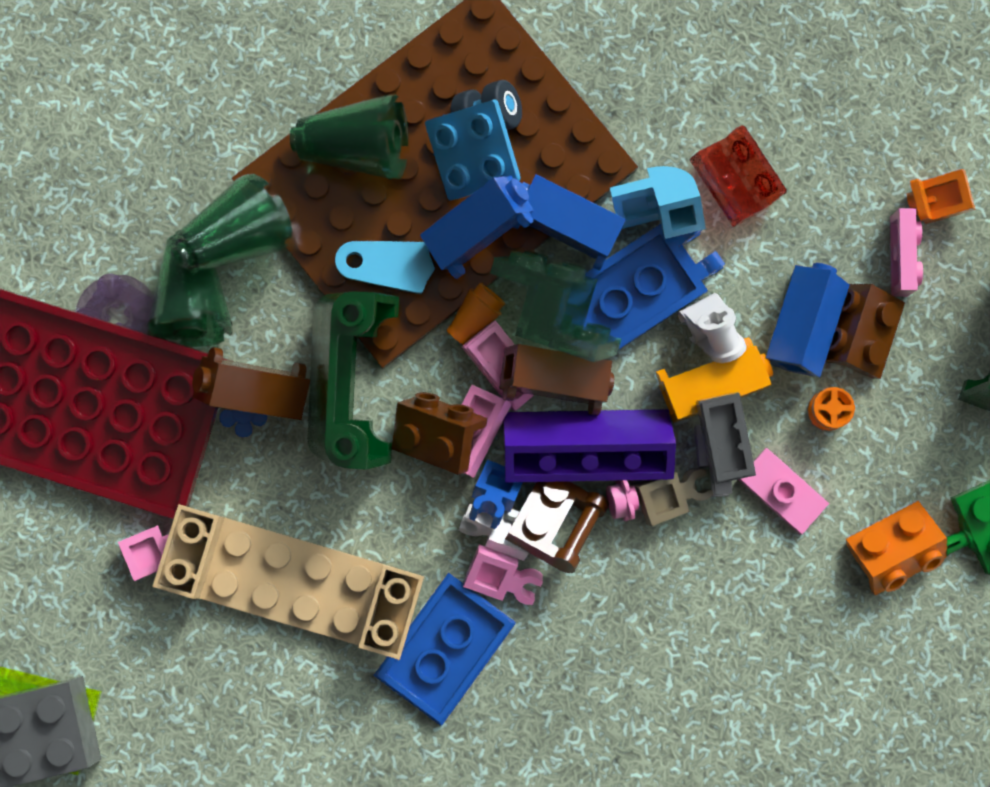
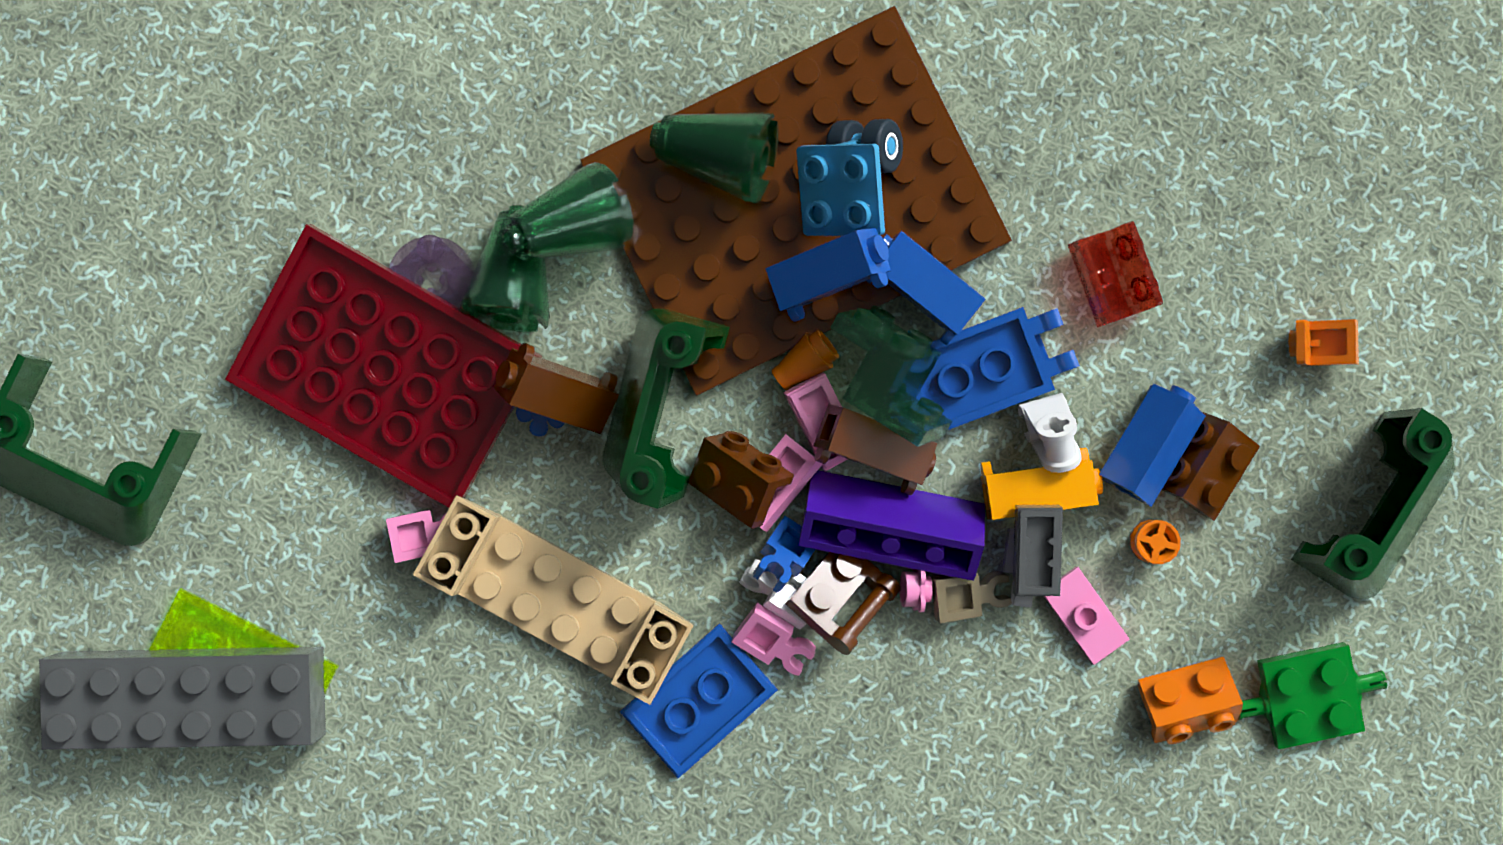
camera: 15 degrees right, 5 degrees up
(388, 264) = (725, 289): medium azure piece -> none
(664, 196) = (1034, 280): medium azure brick -> none
(904, 239) = (1276, 377): bright pink plate -> none

